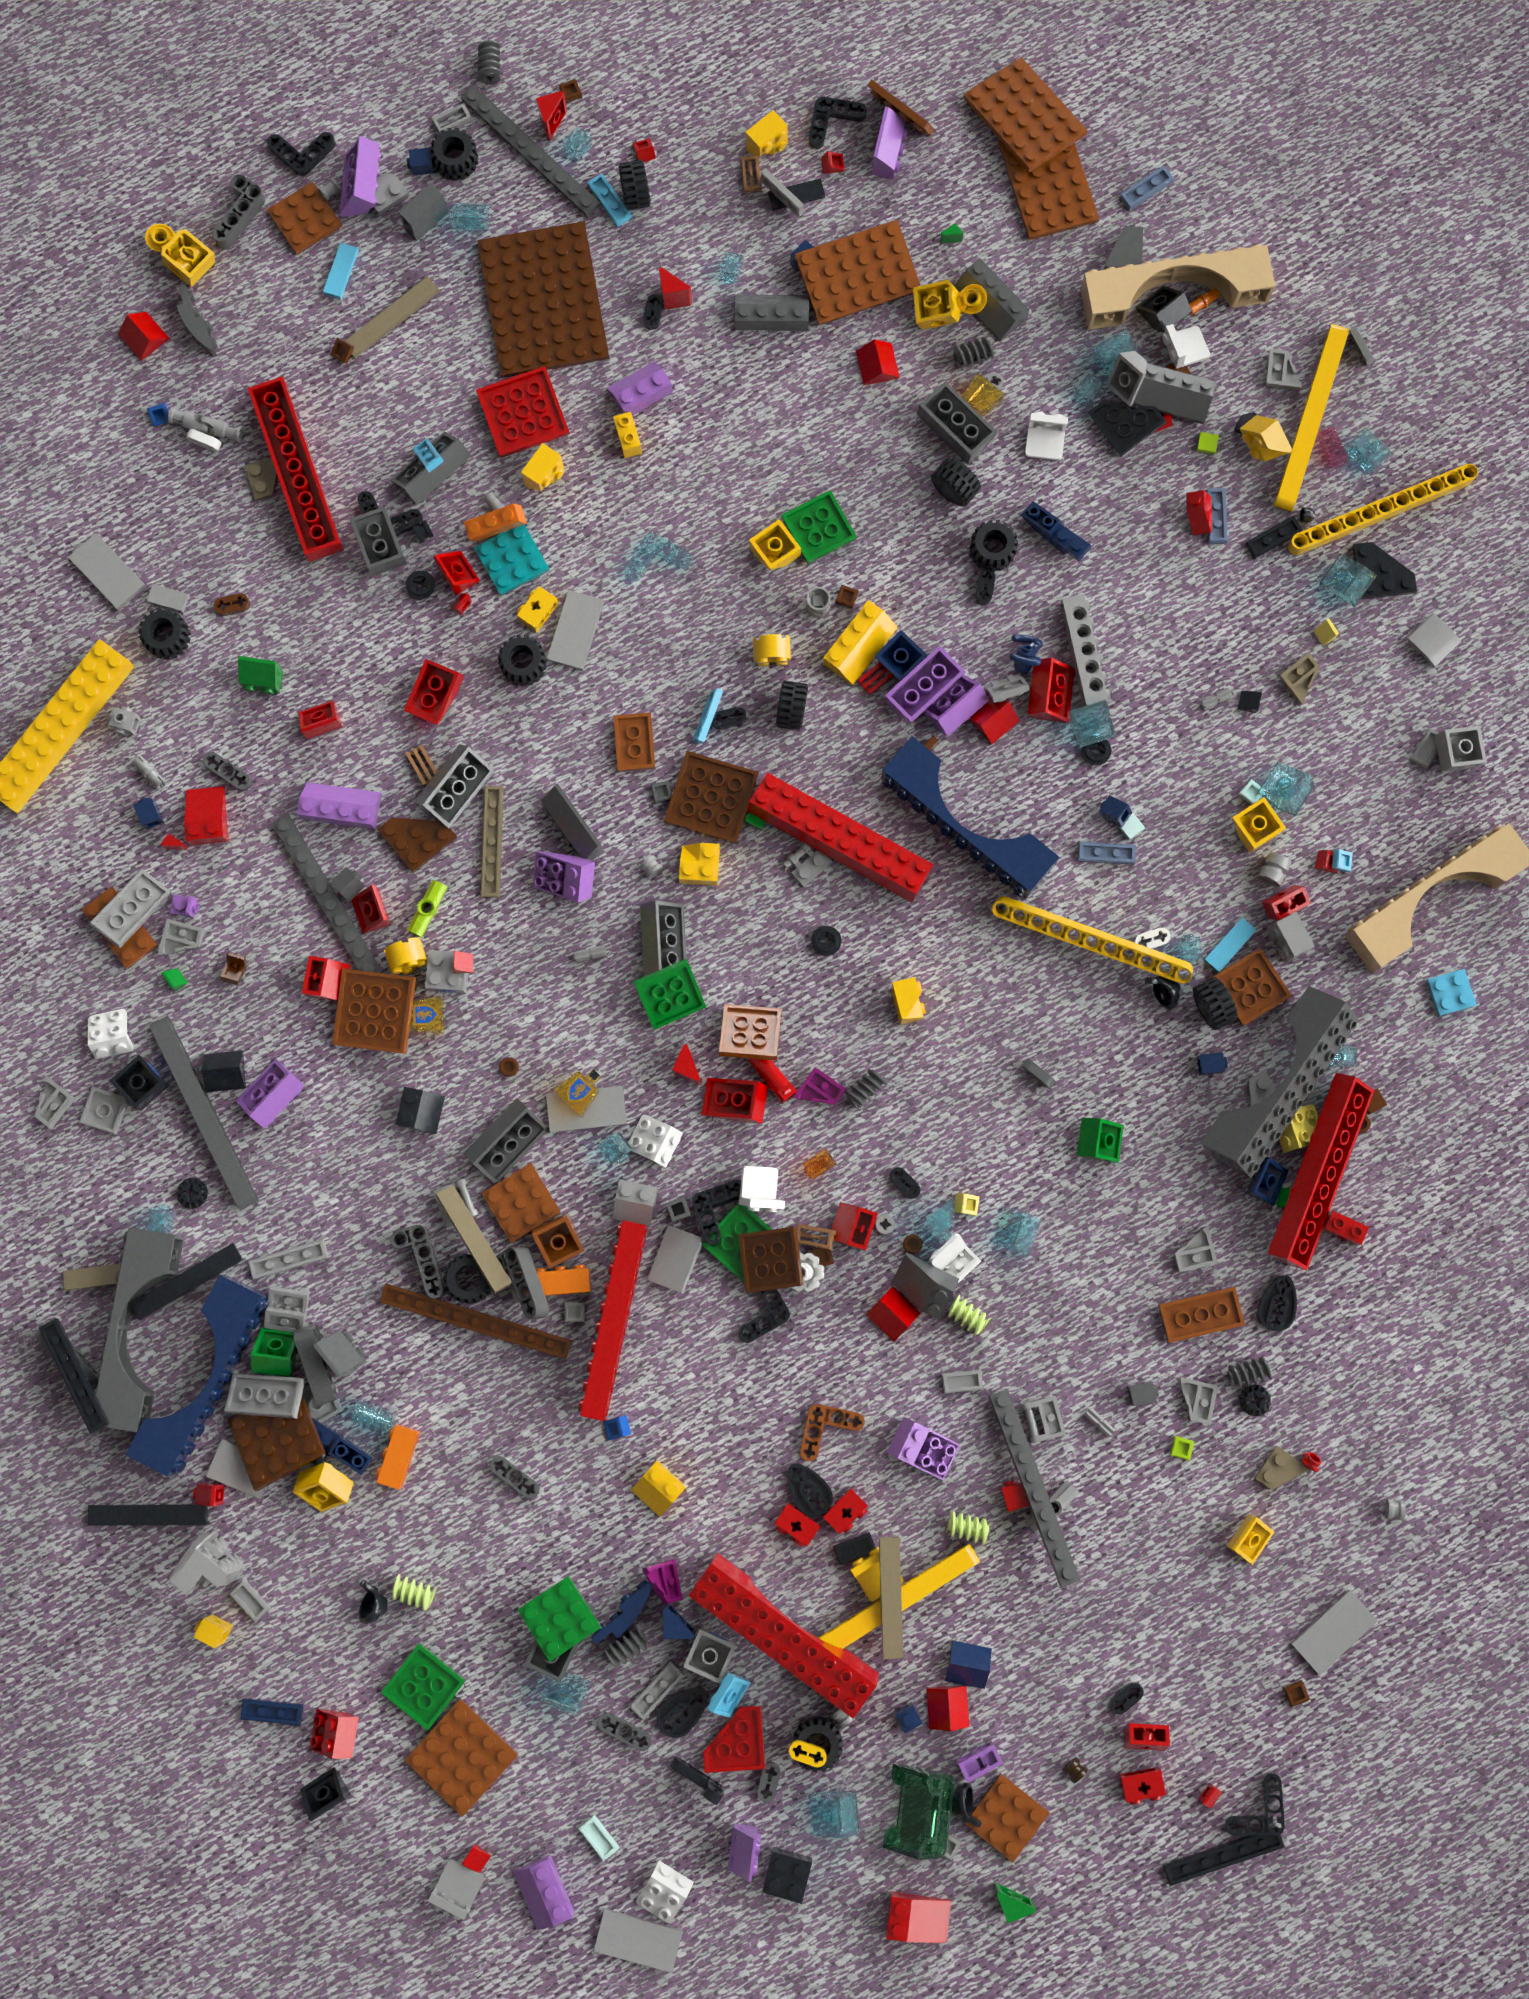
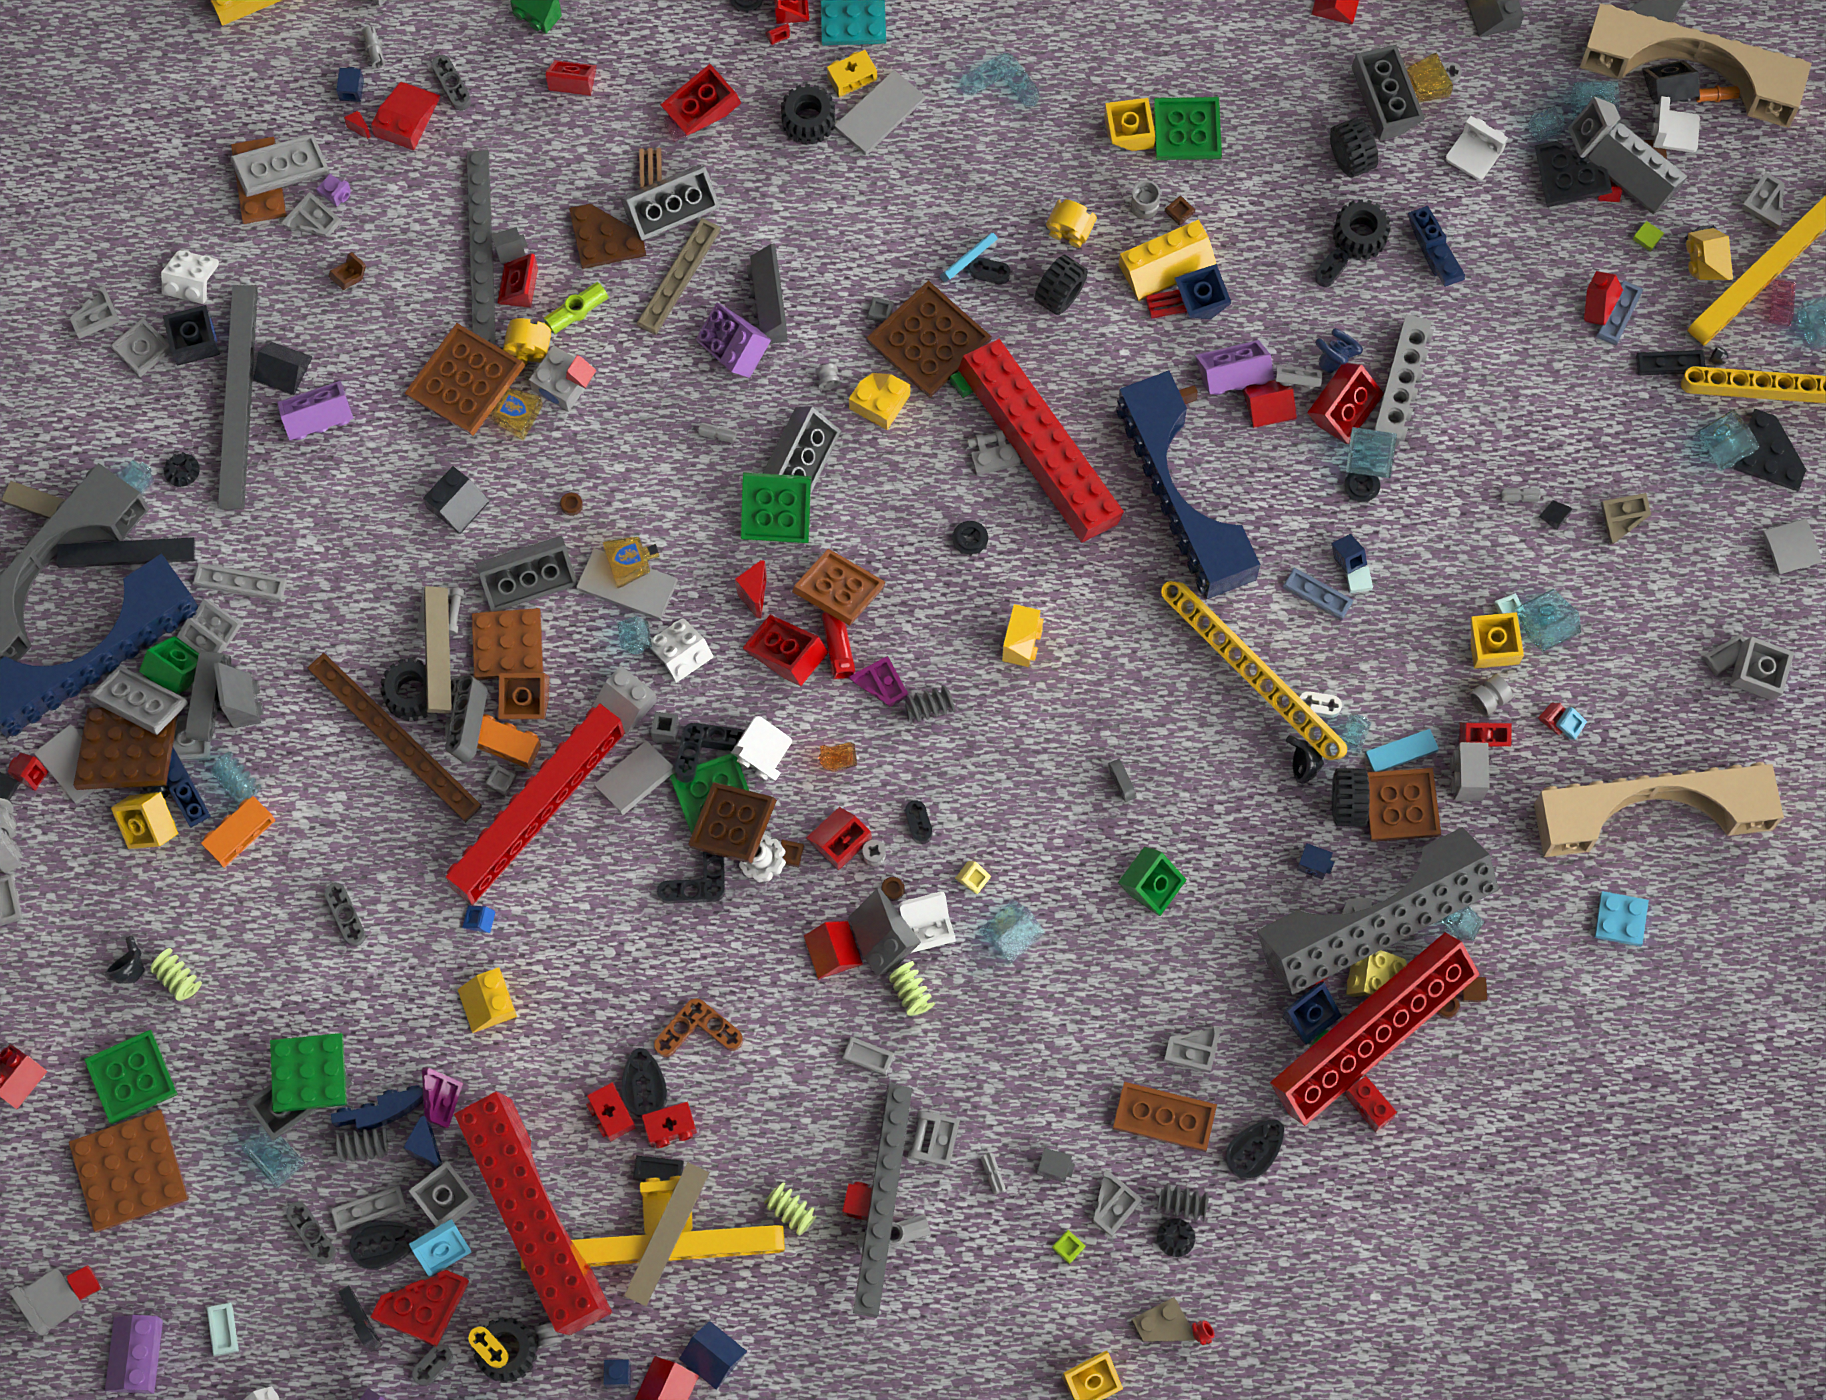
camera: 25 degrees right, 10 degrees down
(174, 979) = (284, 254): slope -> none
(323, 978) = (431, 322): red slope -> none
(339, 805) = (543, 168): medium lavender slope -> none
(423, 1263) = (374, 652): dark grey beam -> none
(634, 742) = (879, 247): dark orange plate -> none
(830, 1239) = (805, 836): medium nougat tile -> none
(923, 1448) = (789, 1103): medium lavender slope -> none
(924, 685) = (1211, 329): medium lavender slope -> none
(941, 1223) = (934, 873): clear light blue slope -> none
(972, 351) = (1443, 32): dark grey piece -> none
(1326, 632) = (1676, 483): light yellow slope -> none

